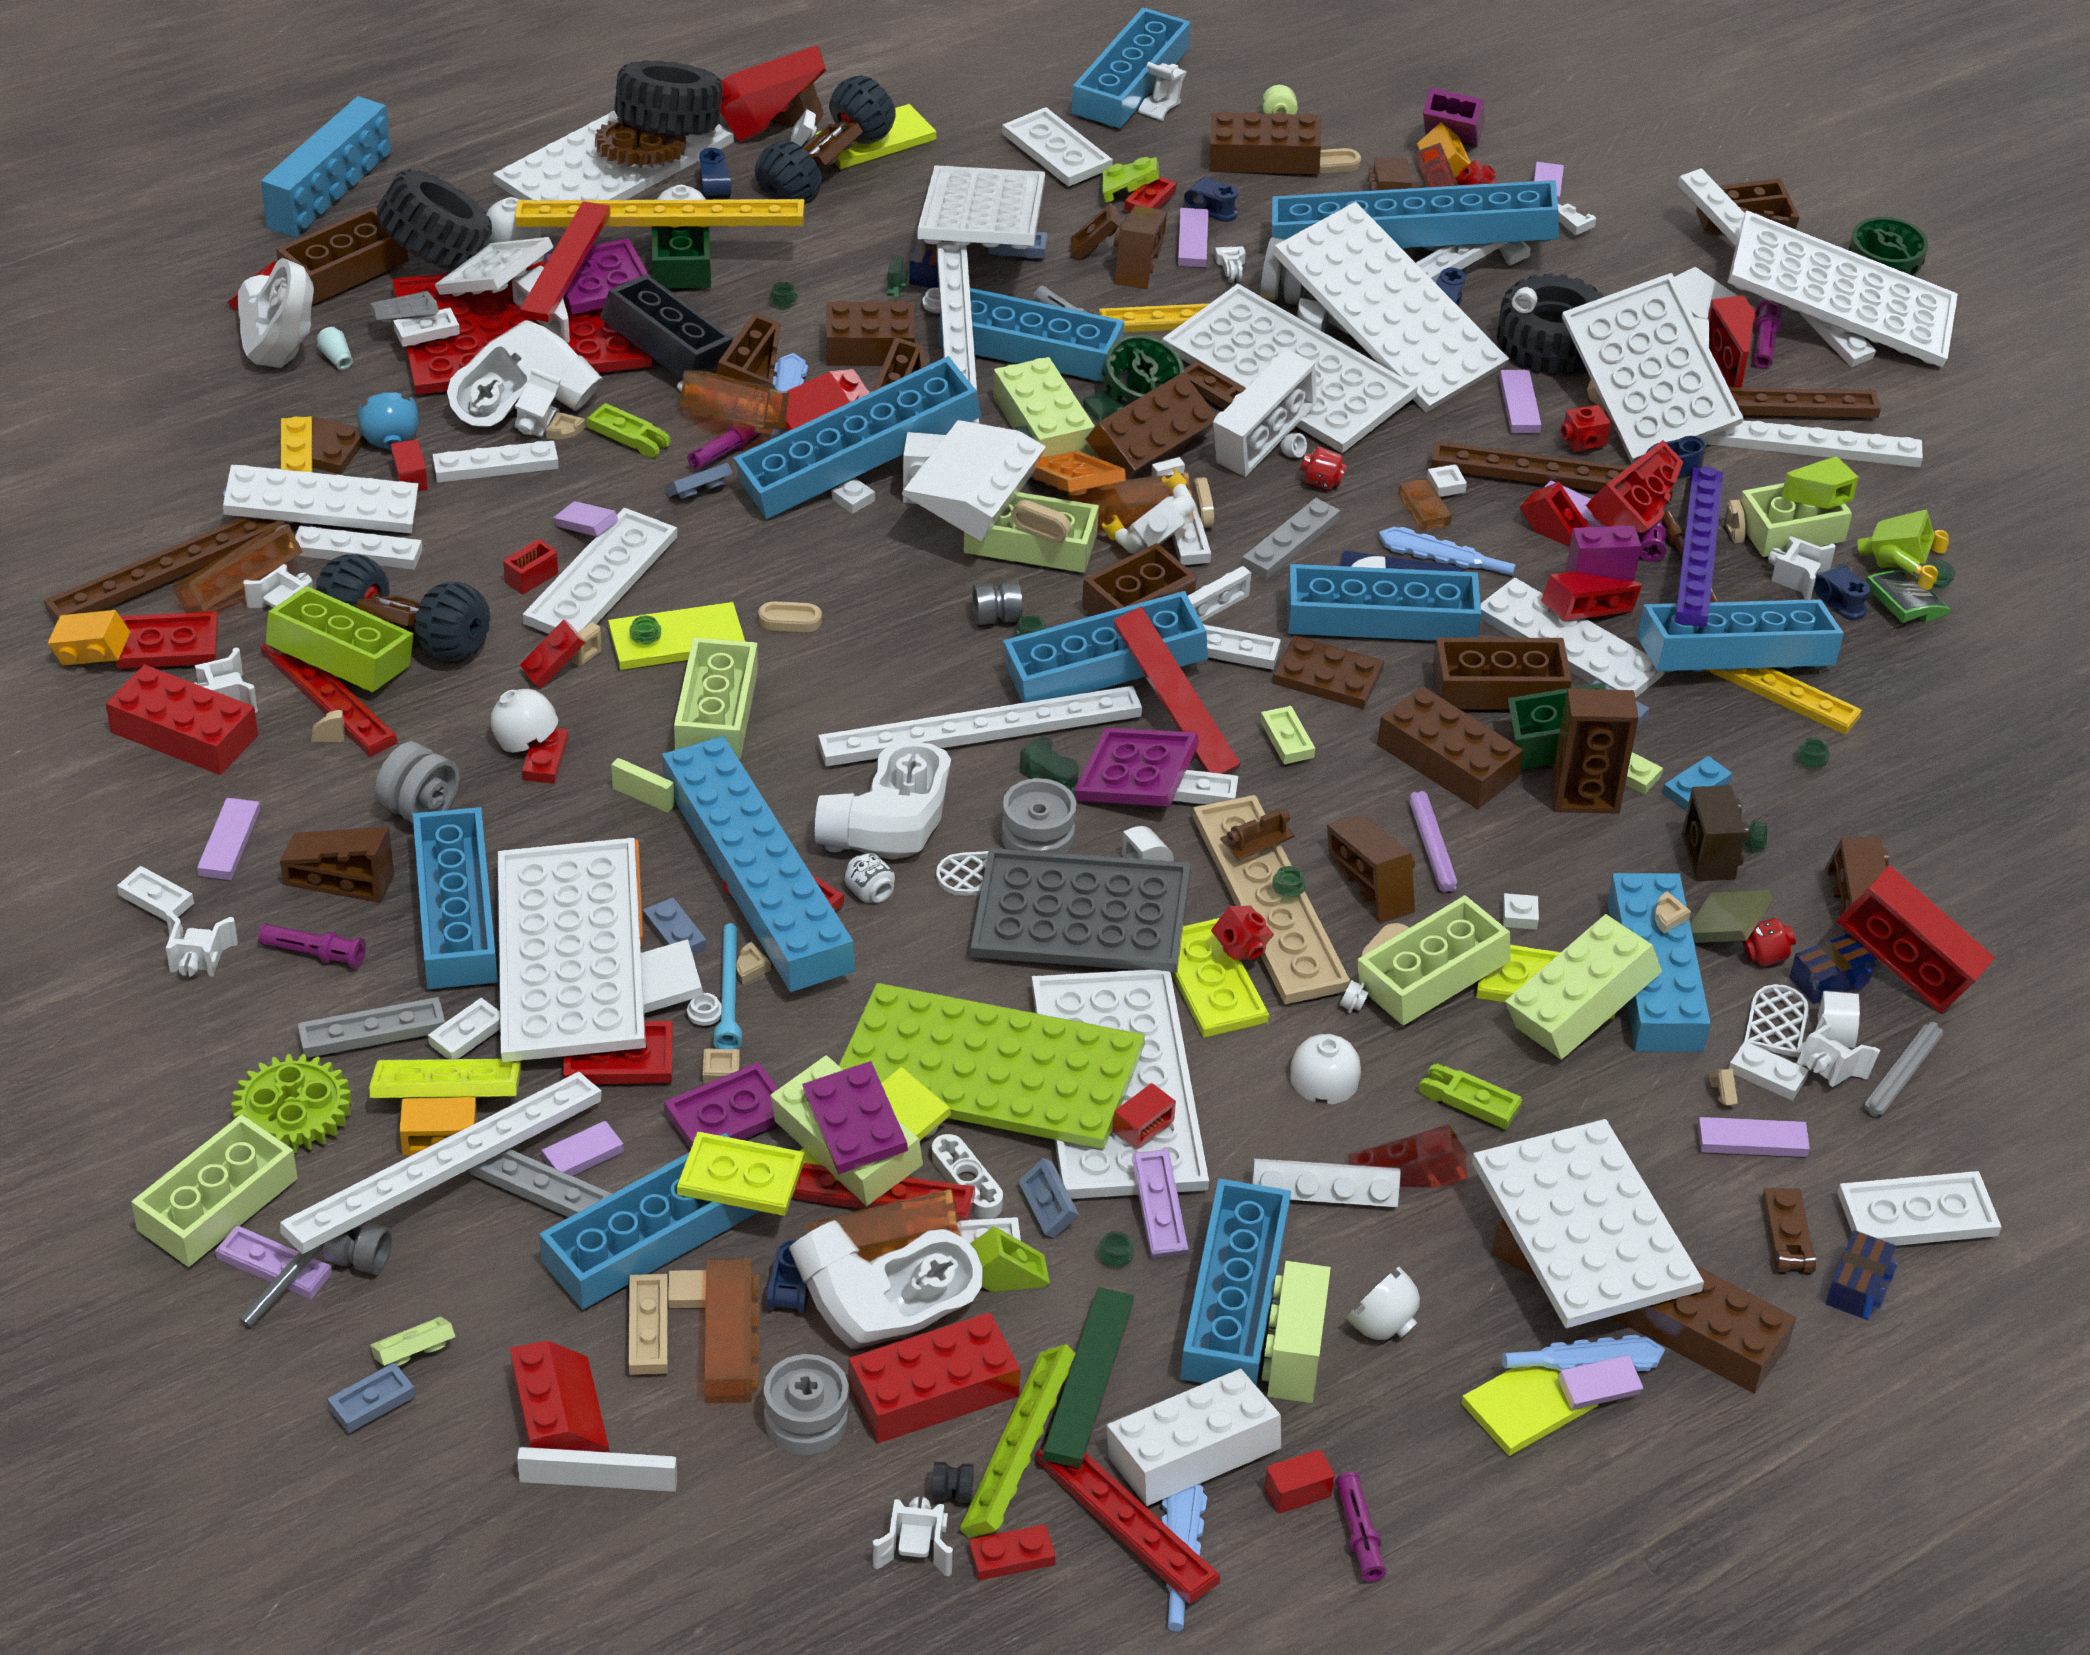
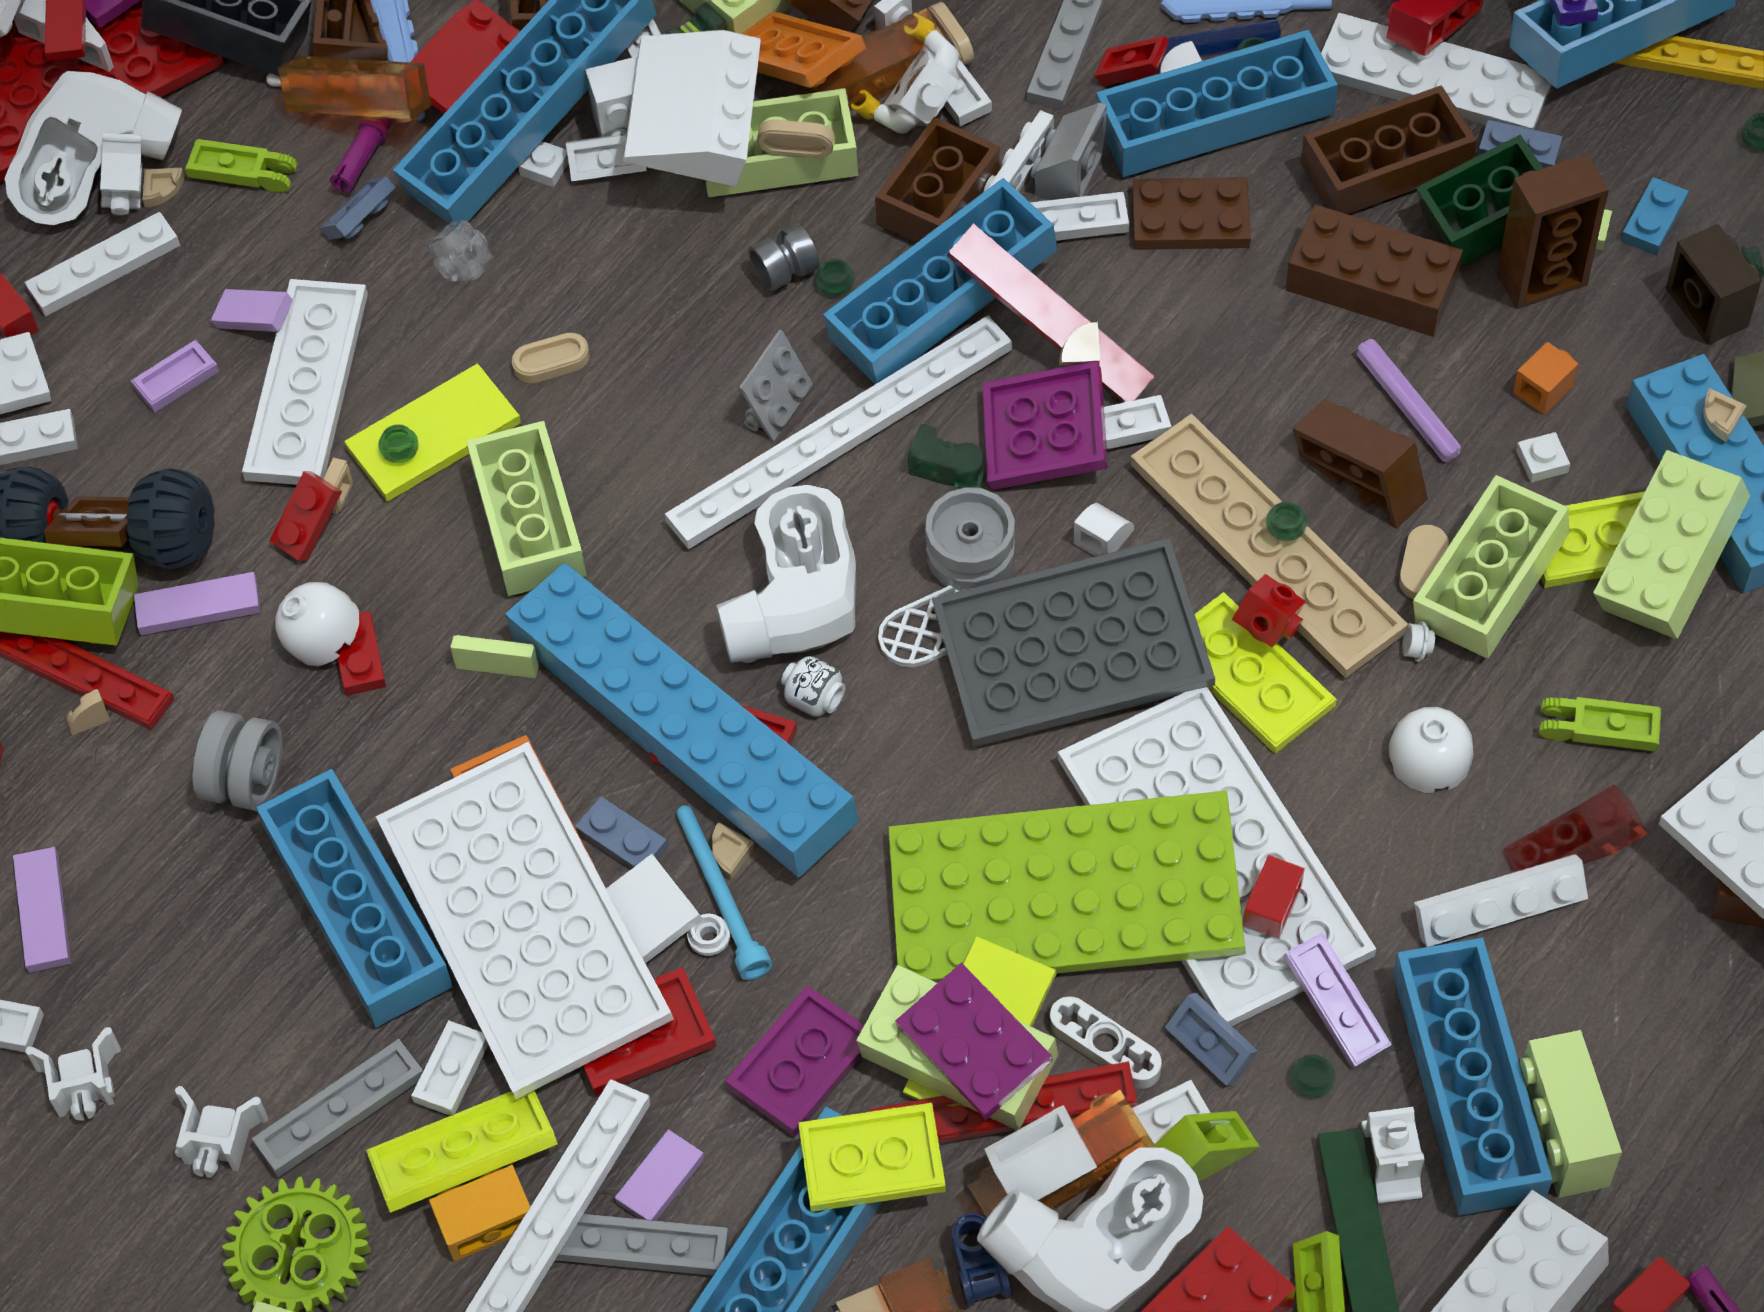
camera: 15 degrees left, 15 degrees up
(276, 1014) = (216, 1133): none -> white piece
(327, 947) = (232, 1017): magenta pin -> none
(340, 862) = (194, 899): reddish brown wedge -> none
(446, 687) = (197, 603): none -> lavender tile
(500, 545) = (174, 376): none -> lavender tile
(530, 566) = (218, 399): red piece -> none
(719, 1063) = (761, 1001): tan tile -> none
(757, 527) = (459, 251): none -> clear brick
(869, 1212) = (1041, 1155): none -> white brick
(889, 501) = (599, 158): none -> white plate
(944, 678) = (774, 387): none -> light grey hinge
(1148, 1315) = (1396, 1154): none -> white piece
(1189, 719) = (1081, 346): none -> tile
(1255, 603) = (1071, 154): none -> light grey slope
(1258, 836) = (1224, 470): reddish brown hinge -> none
(1287, 735) = (1187, 317): yellowish green plate -> none
(1336, 555) = (1132, 61): none -> red slope
(1388, 1308) = (1642, 1040): white cylinder -> none
(1549, 857) = (1545, 377): none -> orange brick

